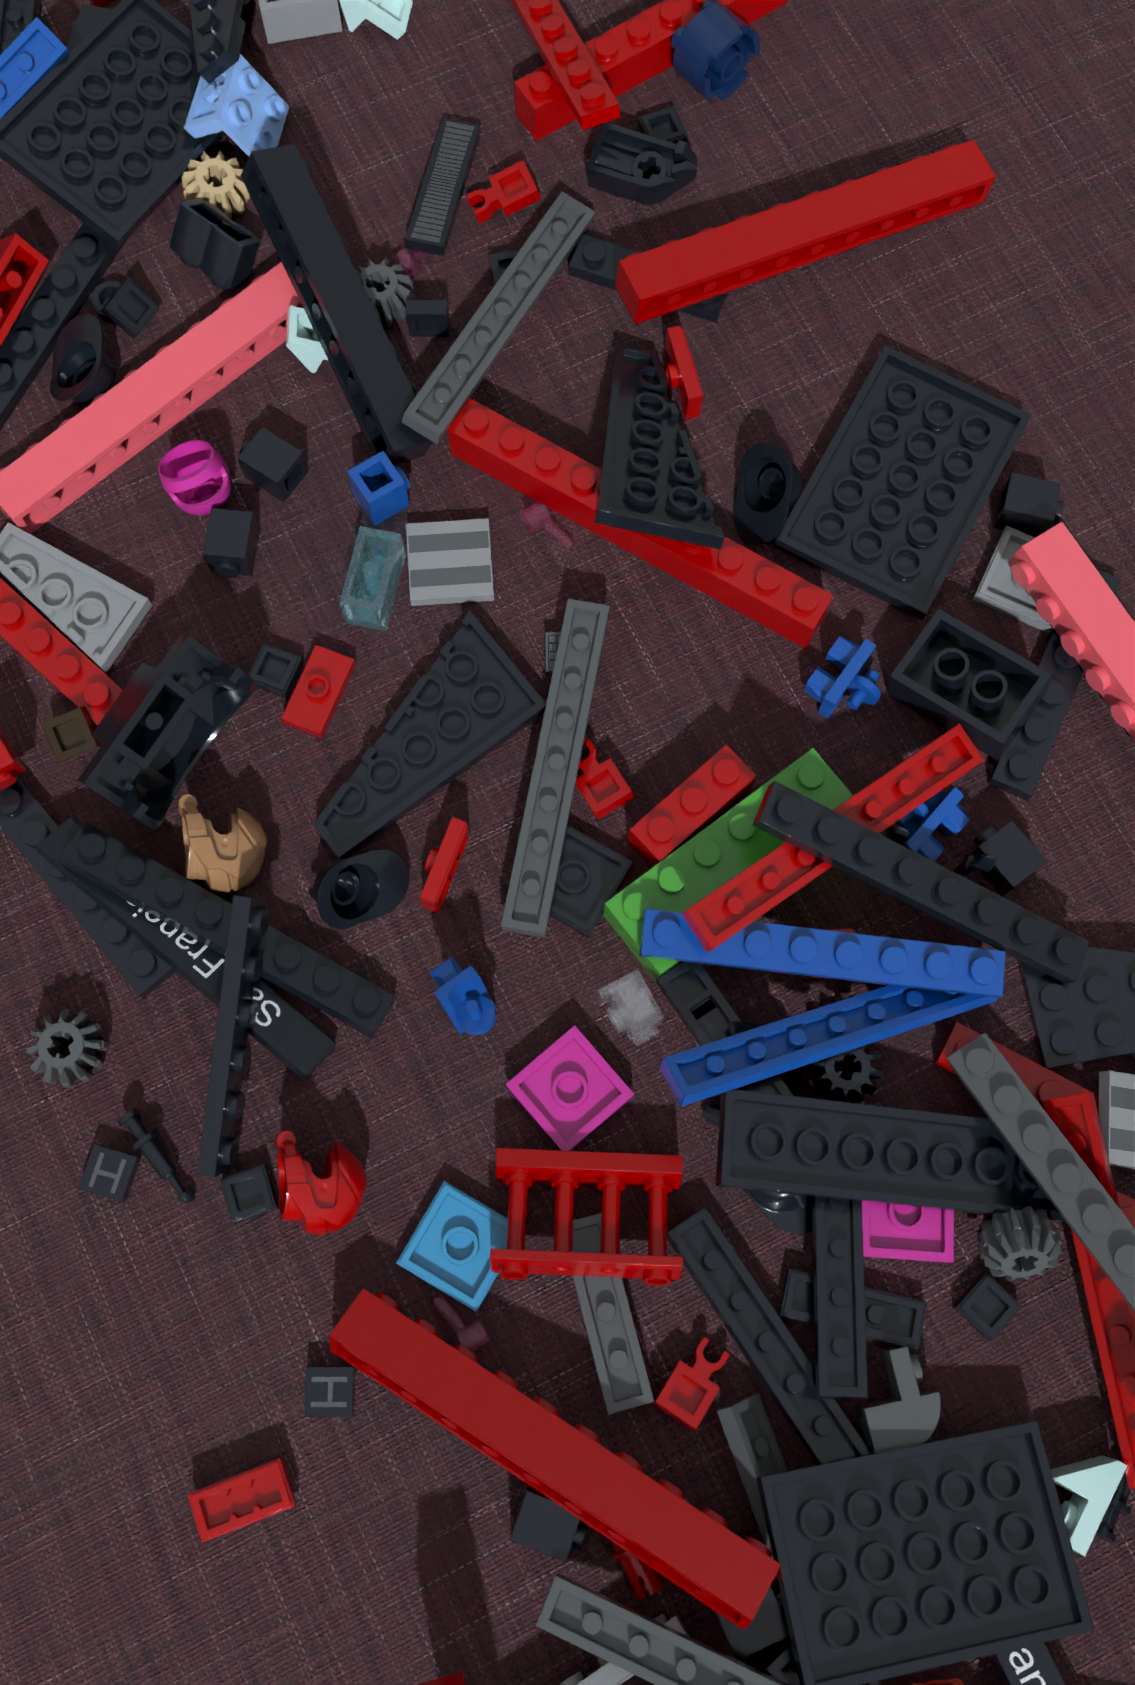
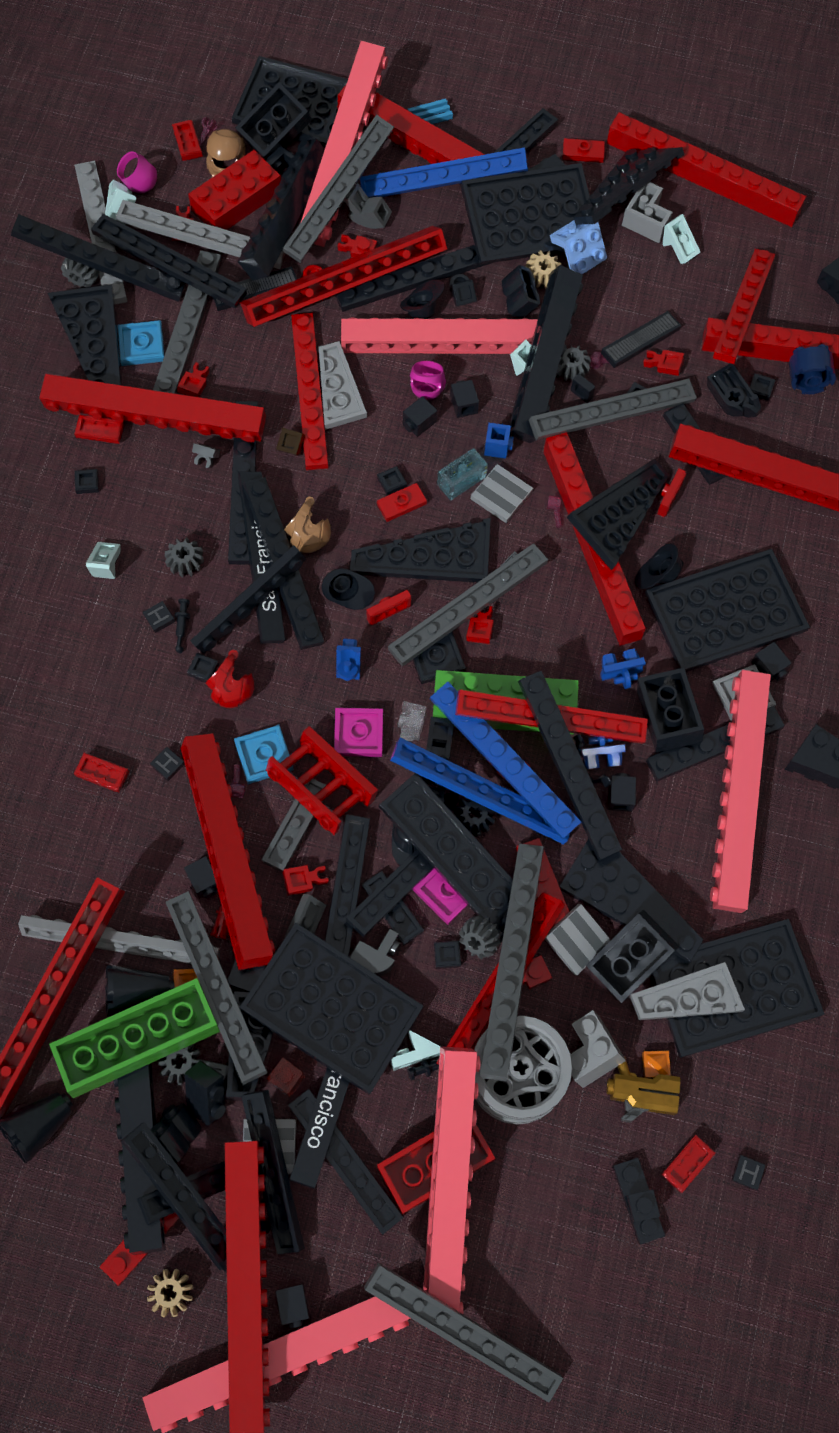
camera: 40 degrees right, 5 degrees down
(163, 729) = (325, 466): black piece -> none
(692, 806) = (508, 662): red brick -> none

